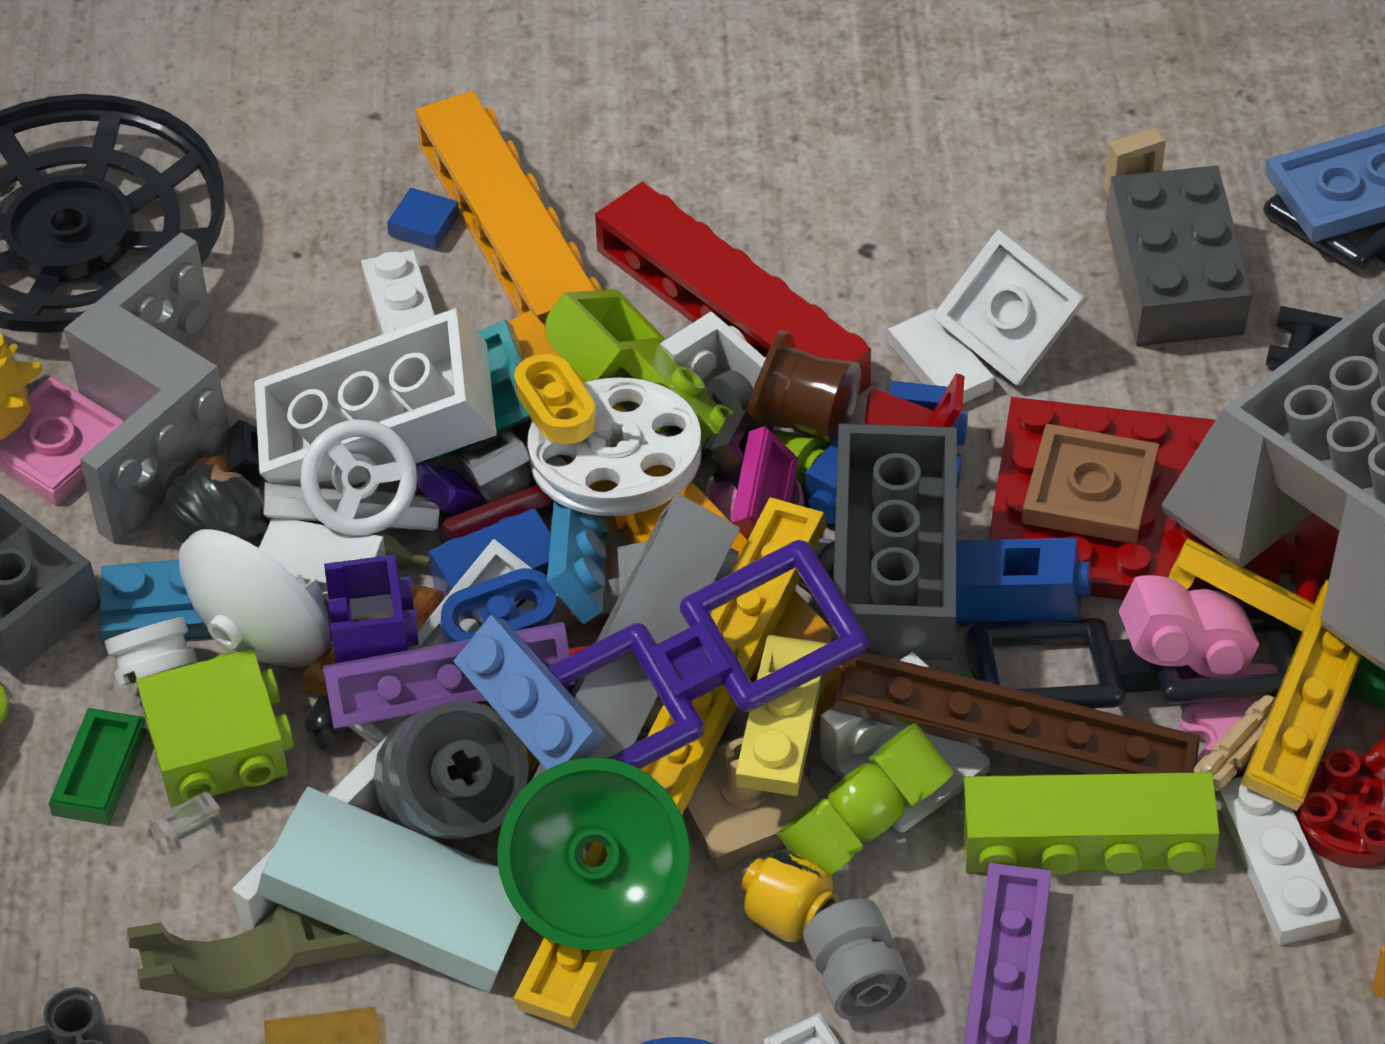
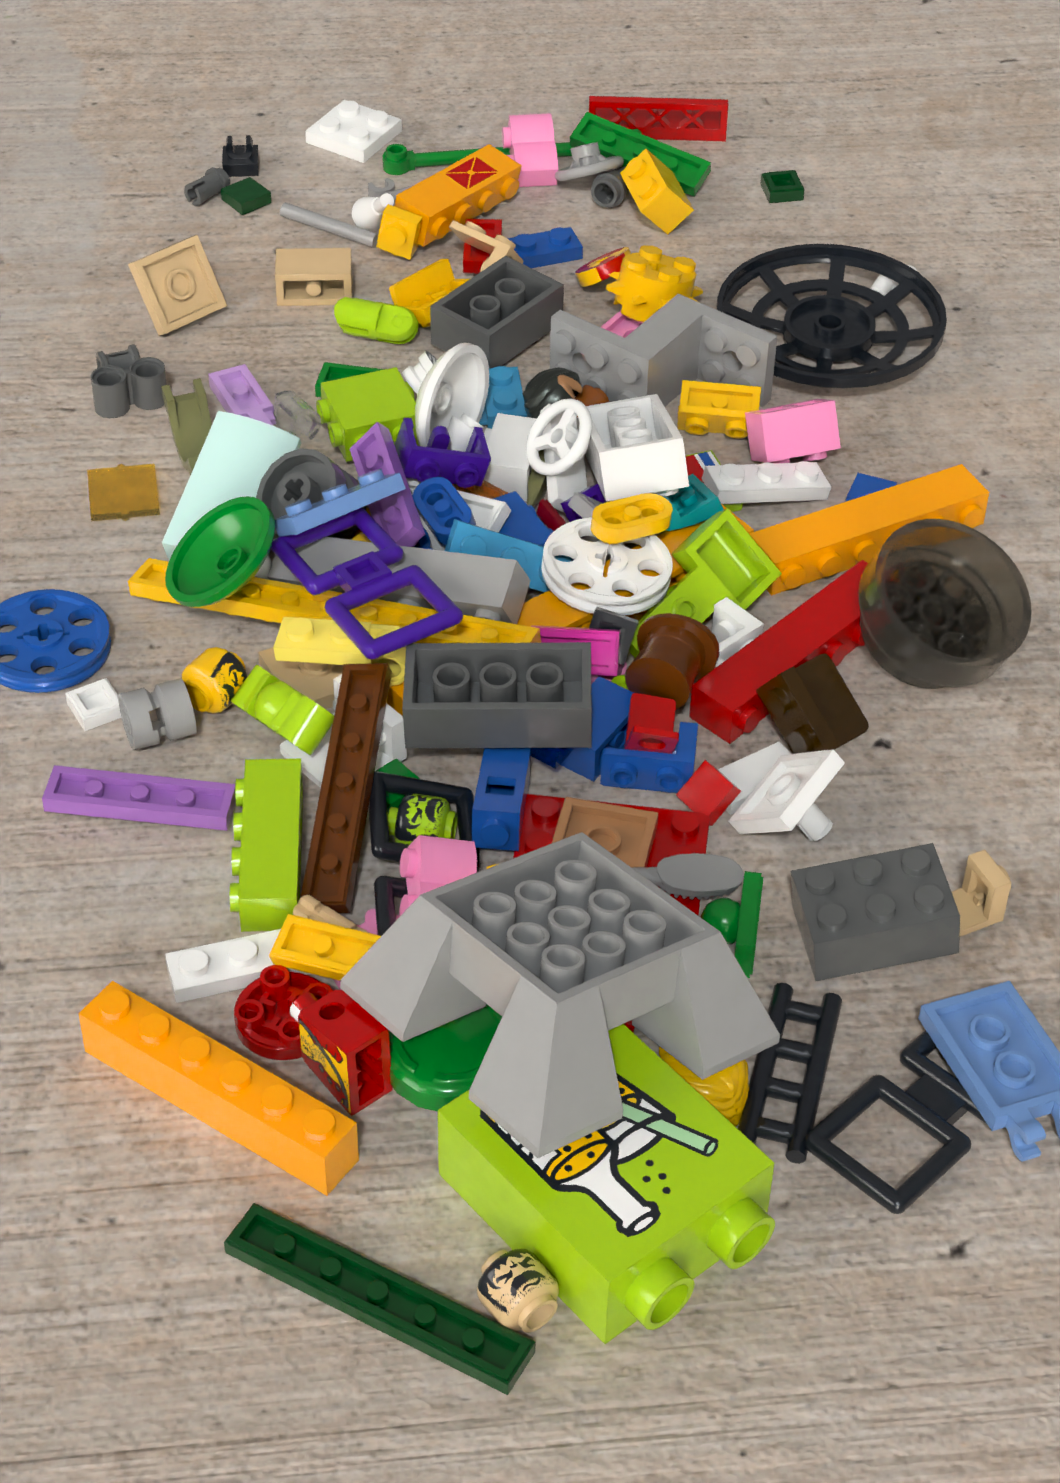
camera: 85 degrees right, 5 degrees down
(139, 896) = (241, 394): none -> lavender hinge
(243, 342) = (716, 408): none -> yellow bracket
(316, 266) = (793, 431): none -> bright pink brick
(723, 136) = (942, 605): none -> clear smoke wheel
(865, 284) = (813, 706): none -> dark brown bracket
(985, 393) = (708, 792): none -> red tile
(1046, 658) = (422, 816): none -> lime head
(1147, 405) = (695, 875): none -> light grey piece
(1189, 374) = (737, 921): none -> green tile

